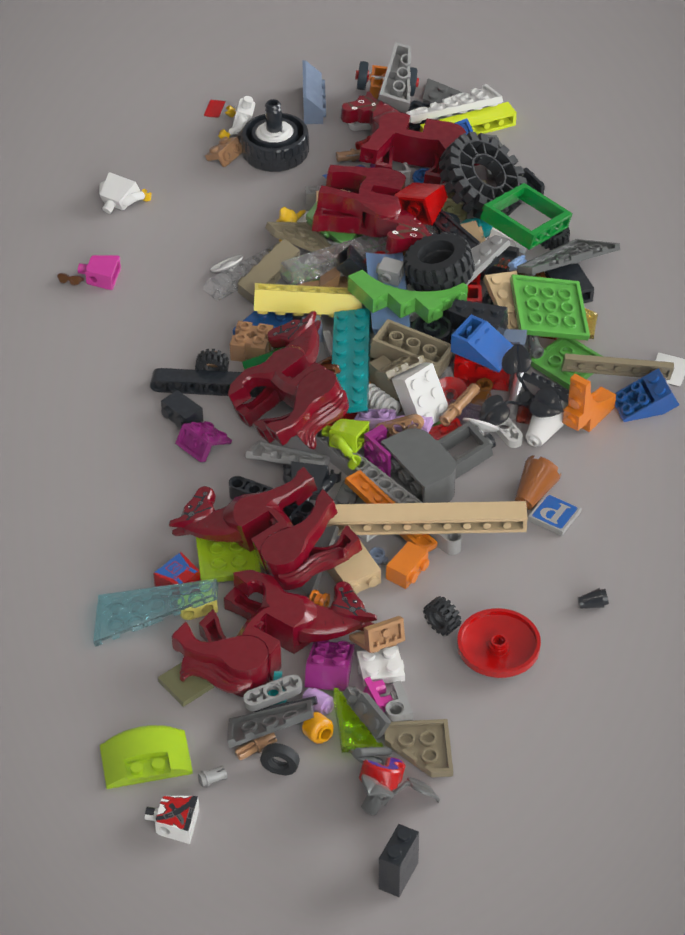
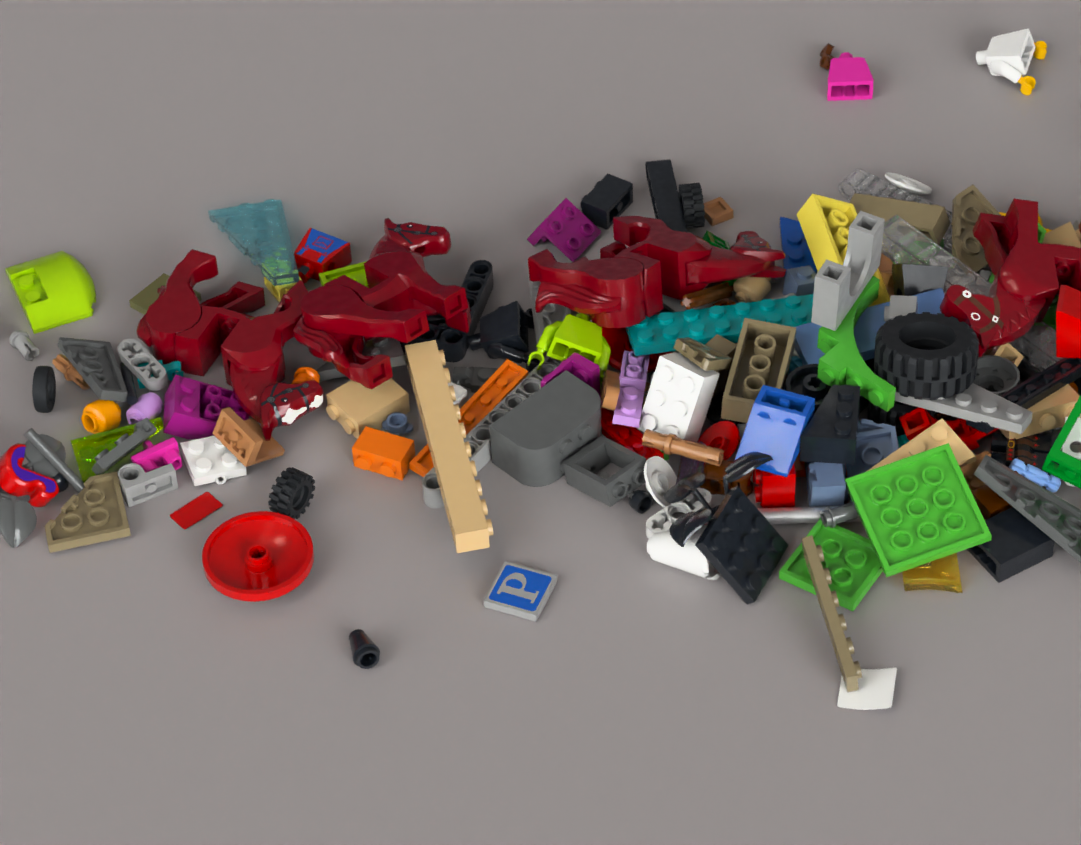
camera: 80 degrees right, 0 degrees up
(249, 341) = (765, 224): medium nougat brick -> none
(356, 266) = (841, 285): none -> light grey arch
(427, 684) = (196, 510): none -> red sticker
(536, 480) = (561, 553): dark orange cone -> none
(586, 408) = (721, 587): orange arch -> none
(645, 398) = (786, 662): blue slope -> none

